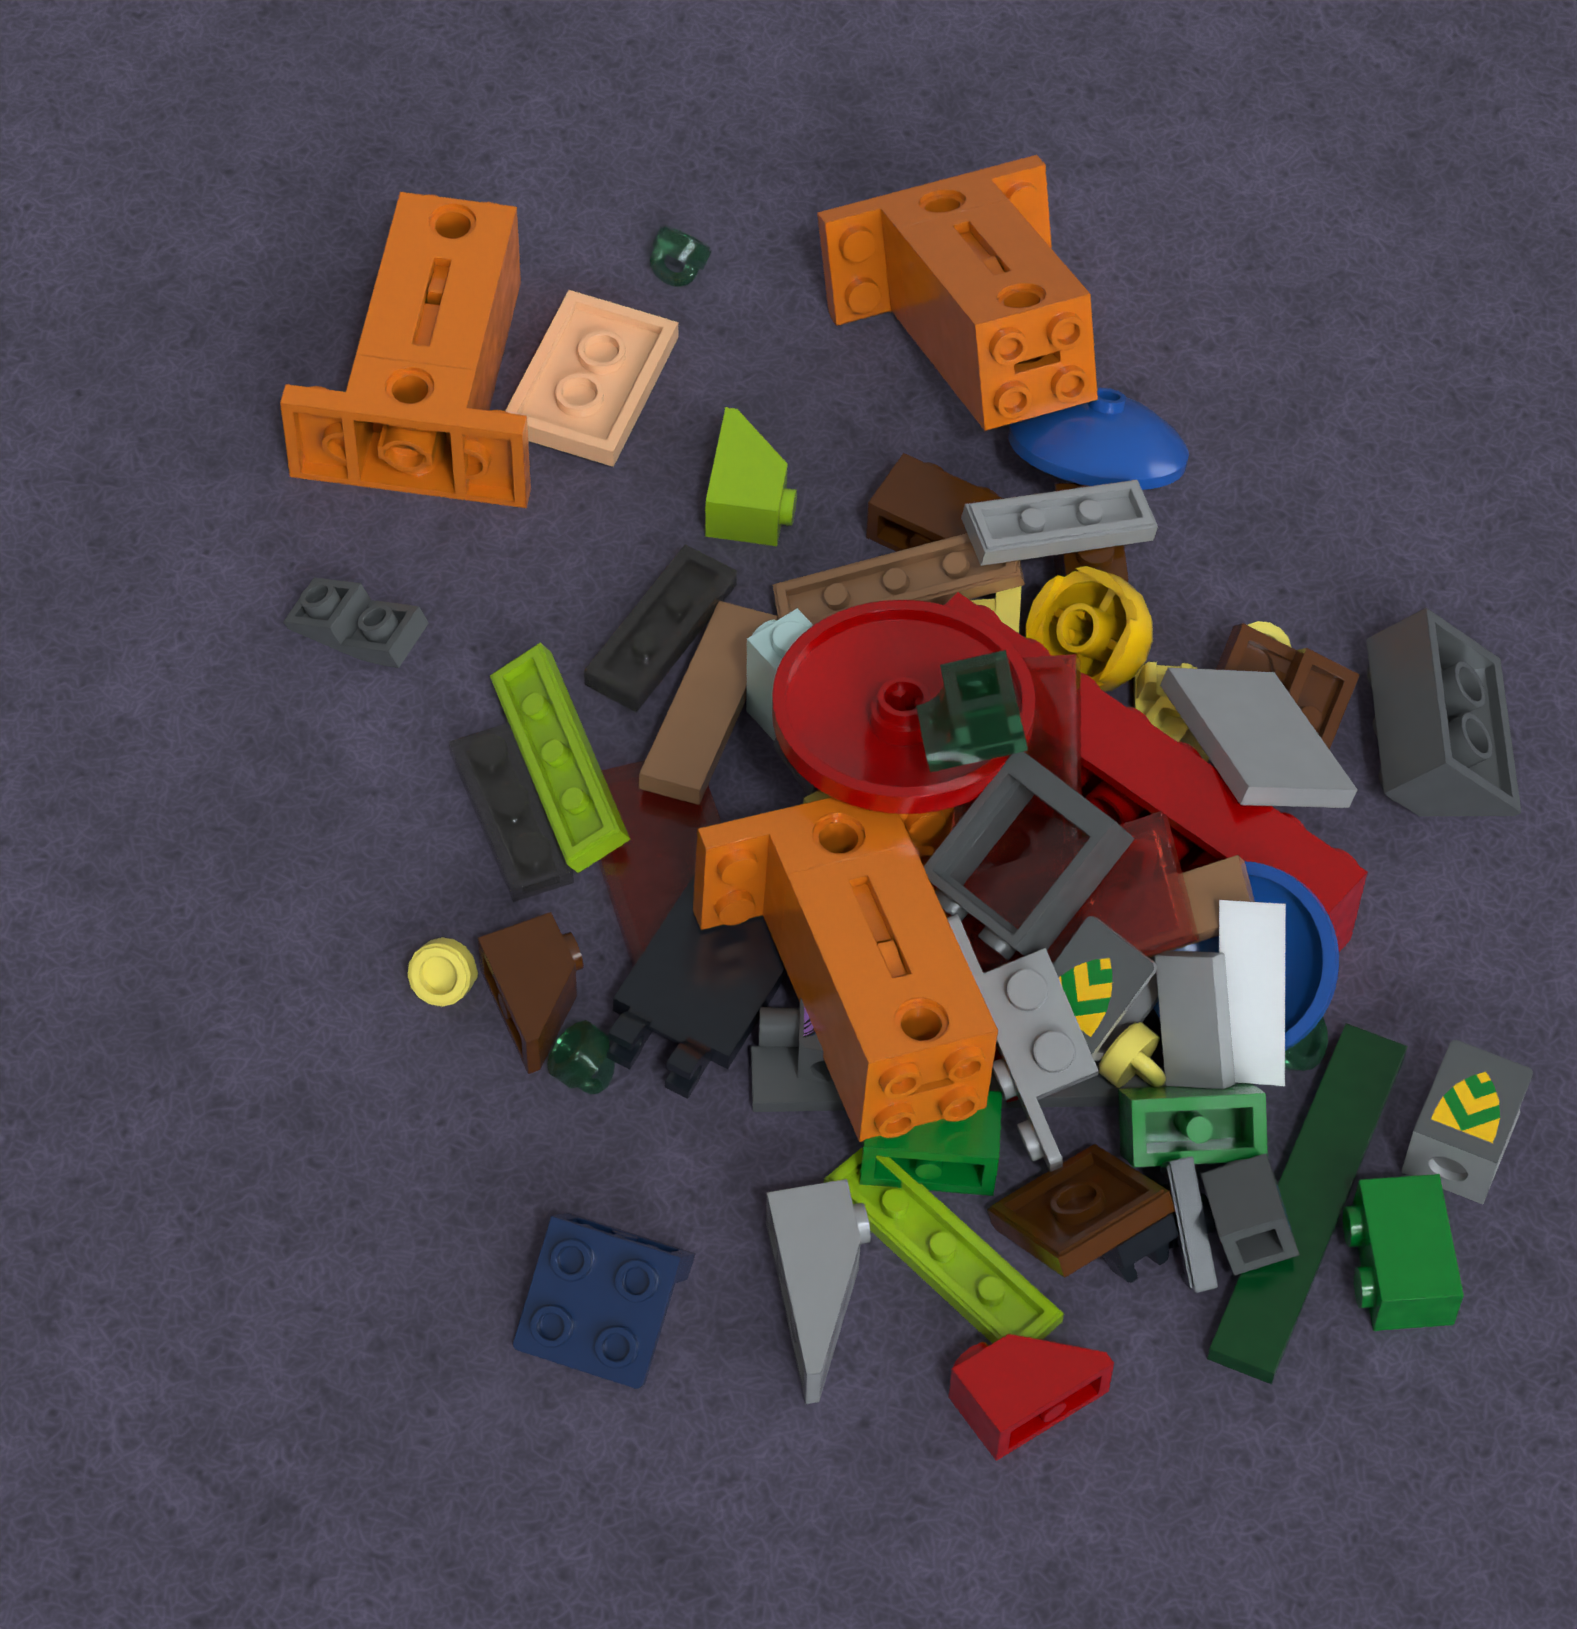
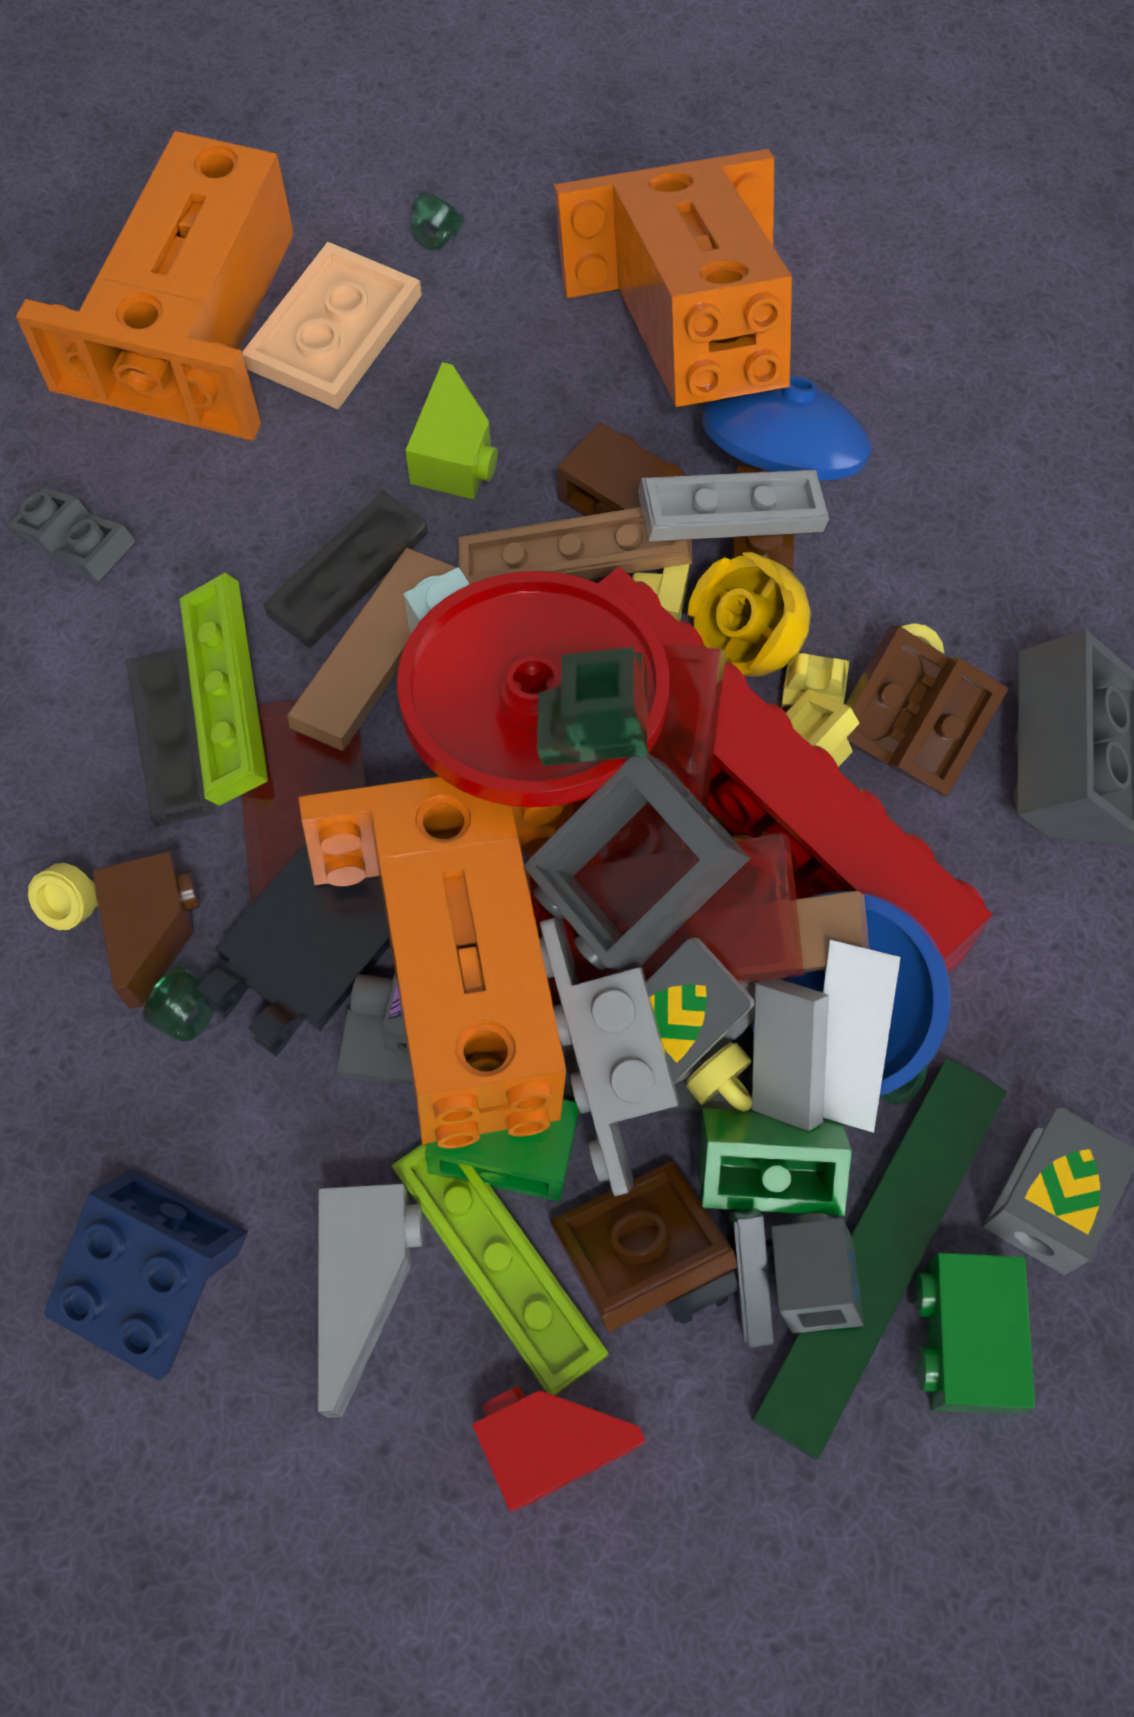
camera: 10 degrees right, 10 degrees up
(1258, 738) = (898, 752): light grey tile -> none

